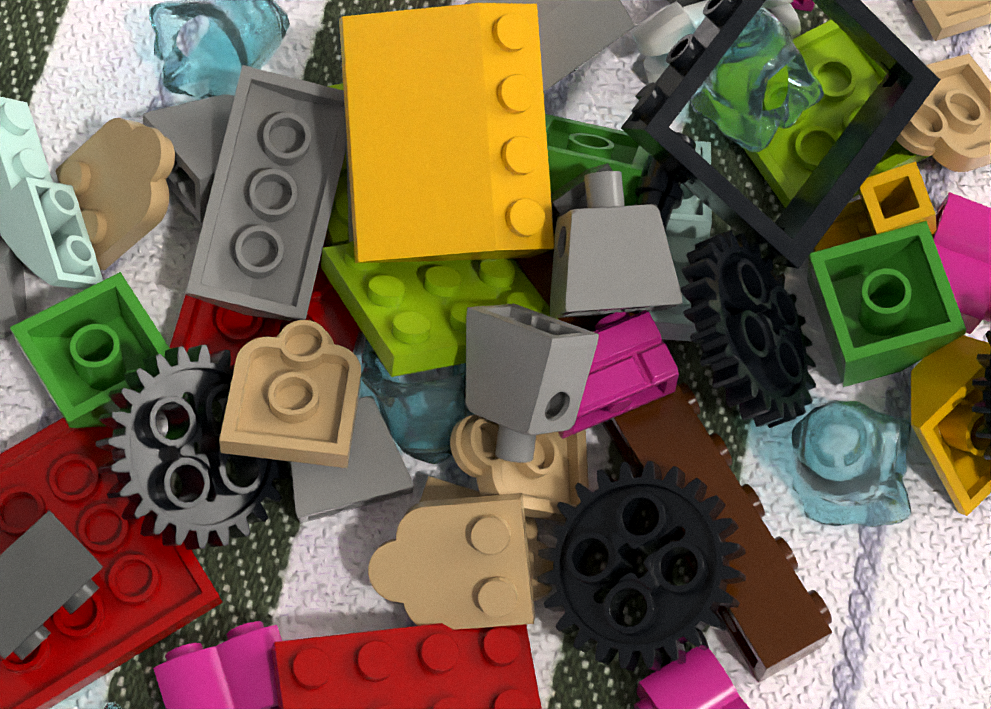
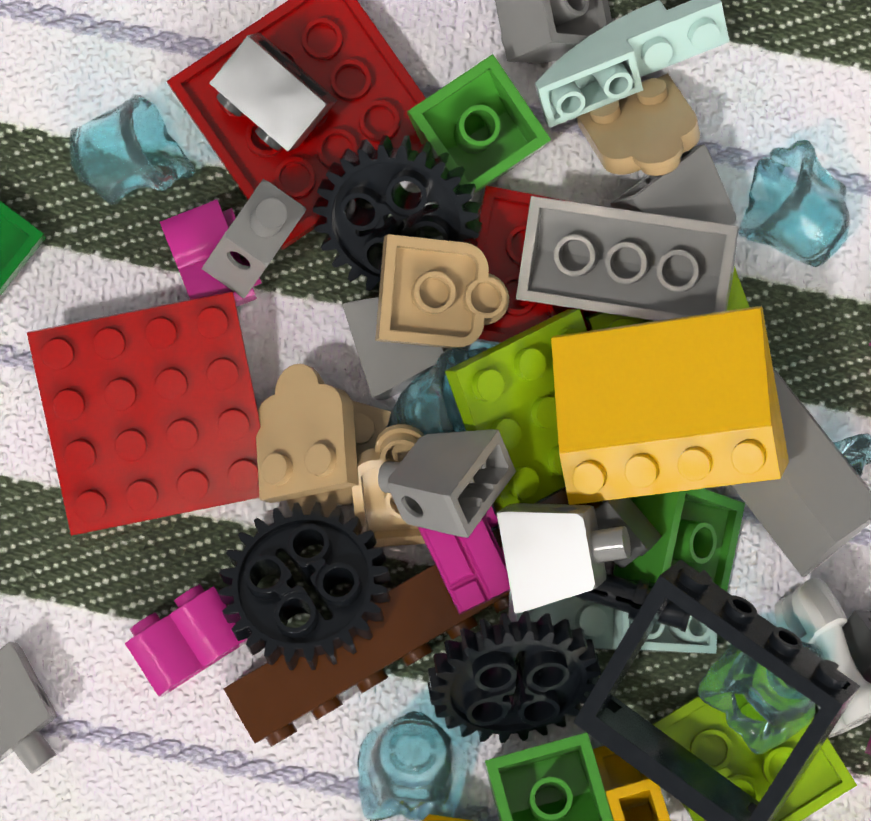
camera: 85 degrees right, 15 degrees up
(189, 598) = (256, 235): none -> light grey torso

